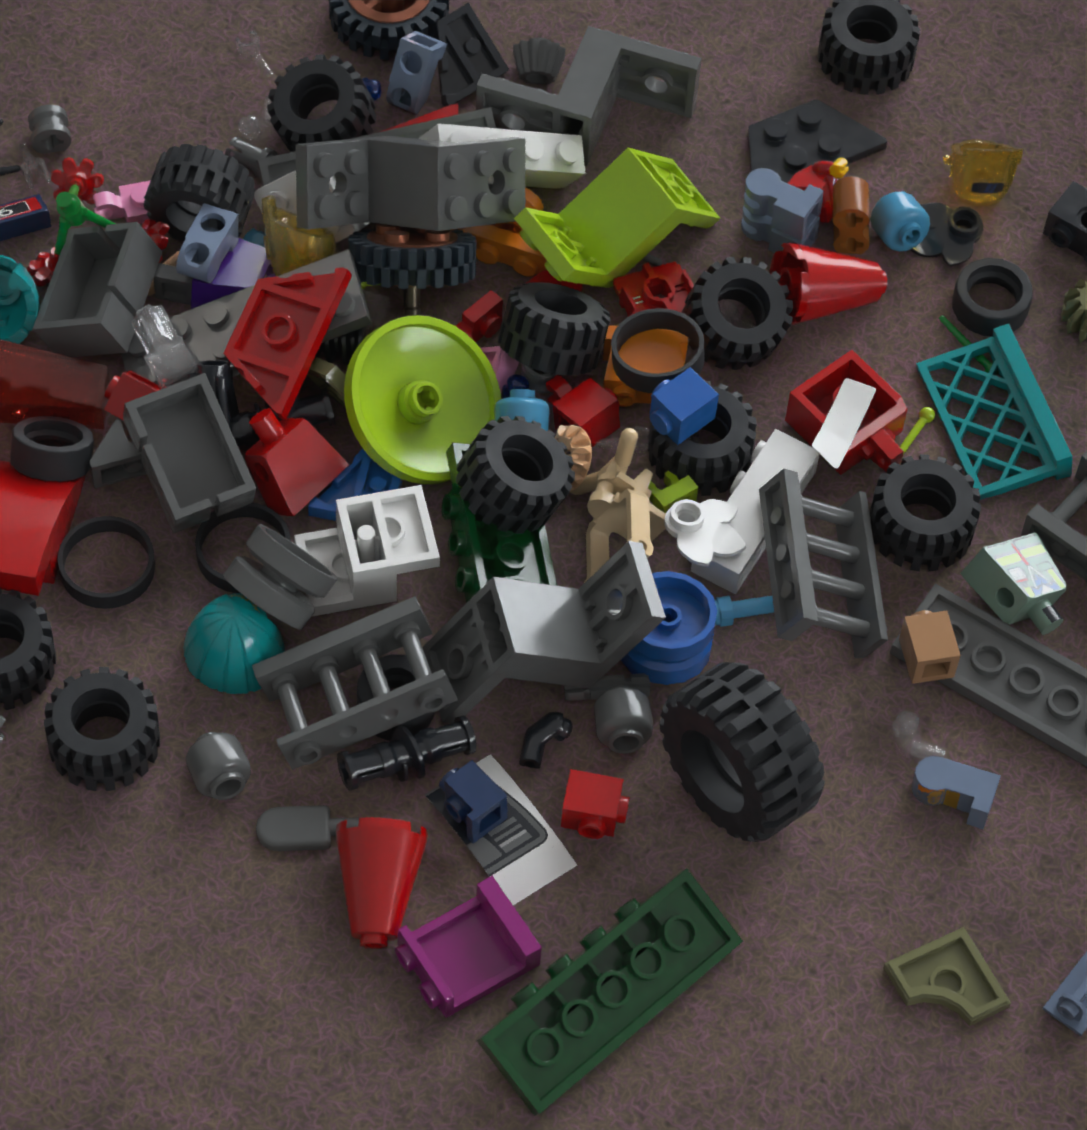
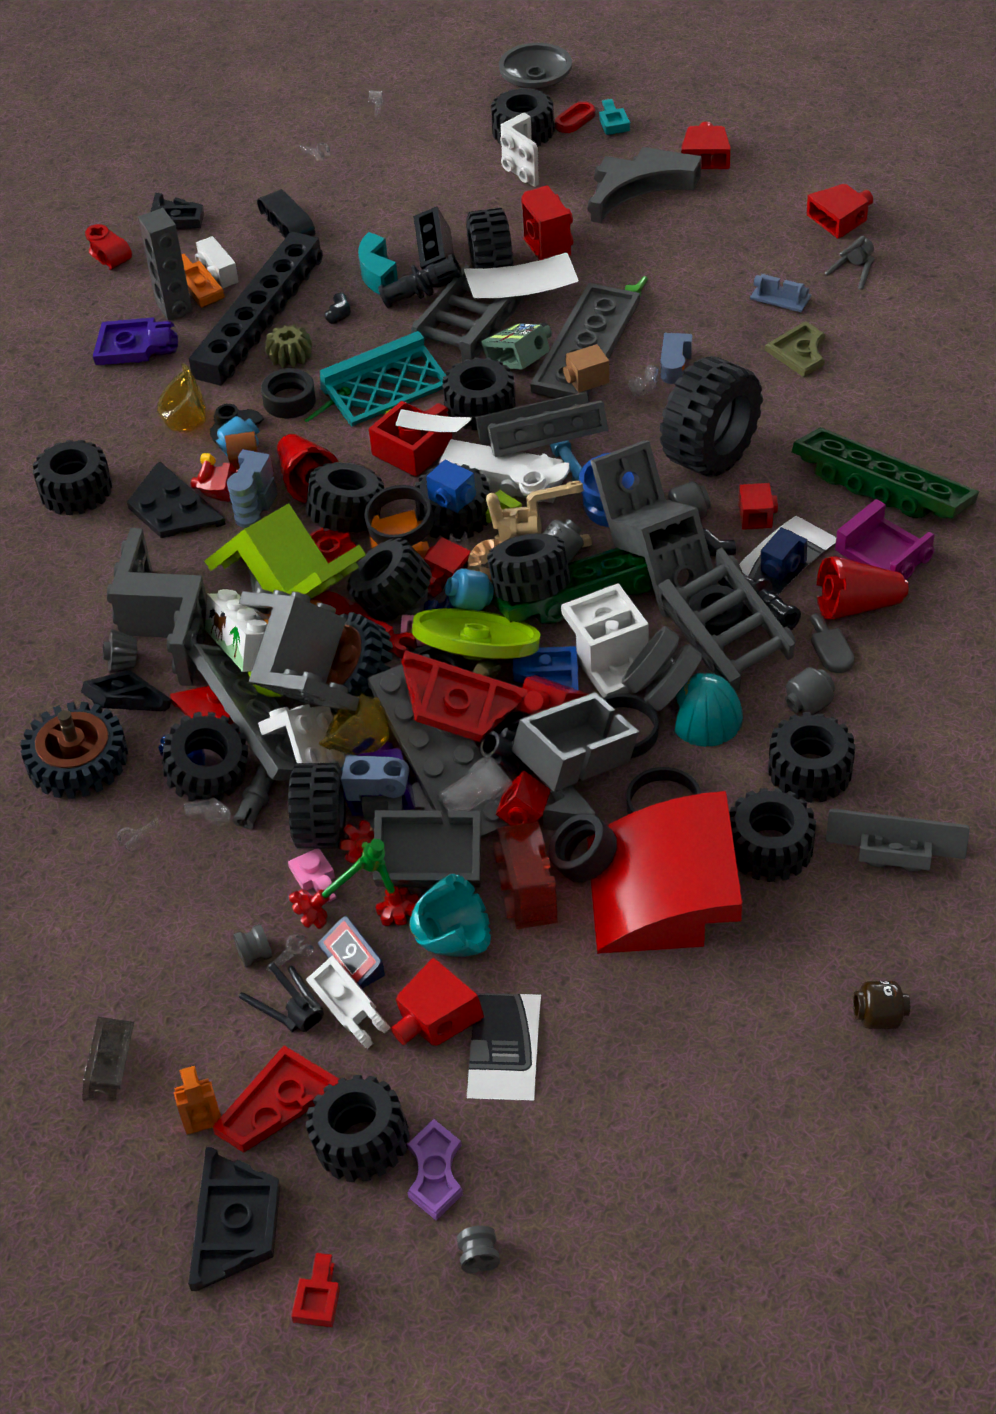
camera: 95 degrees left, 10 degrees down
(414, 71) = (149, 710): sand blue leg -> none
(573, 536) = (569, 533): none -> dark grey head

